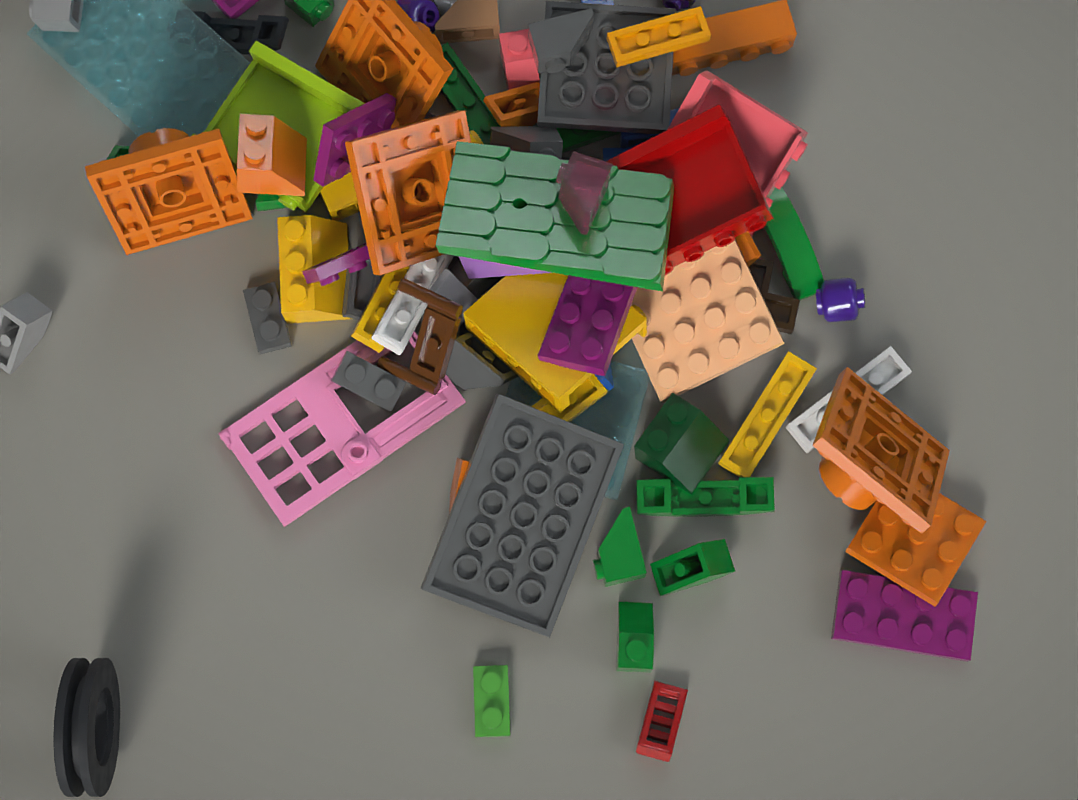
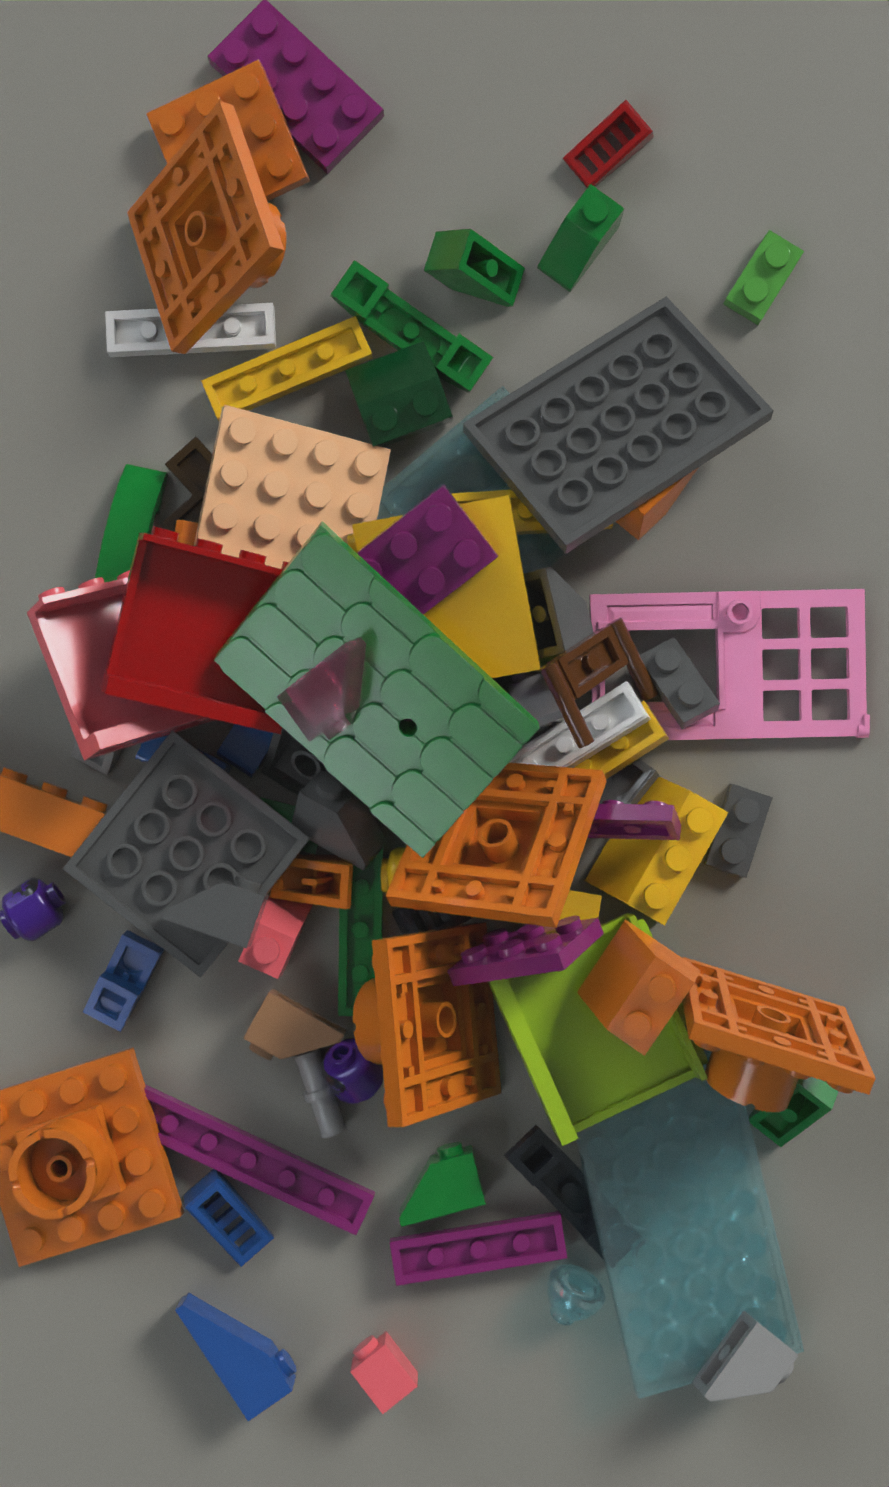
camera: 150 degrees left, 10 degrees up
(620, 553) = (538, 330): green slope -> none
(658, 36) = (107, 841): light orange plate -> none
(839, 300) = (122, 436): dark purple head -> none

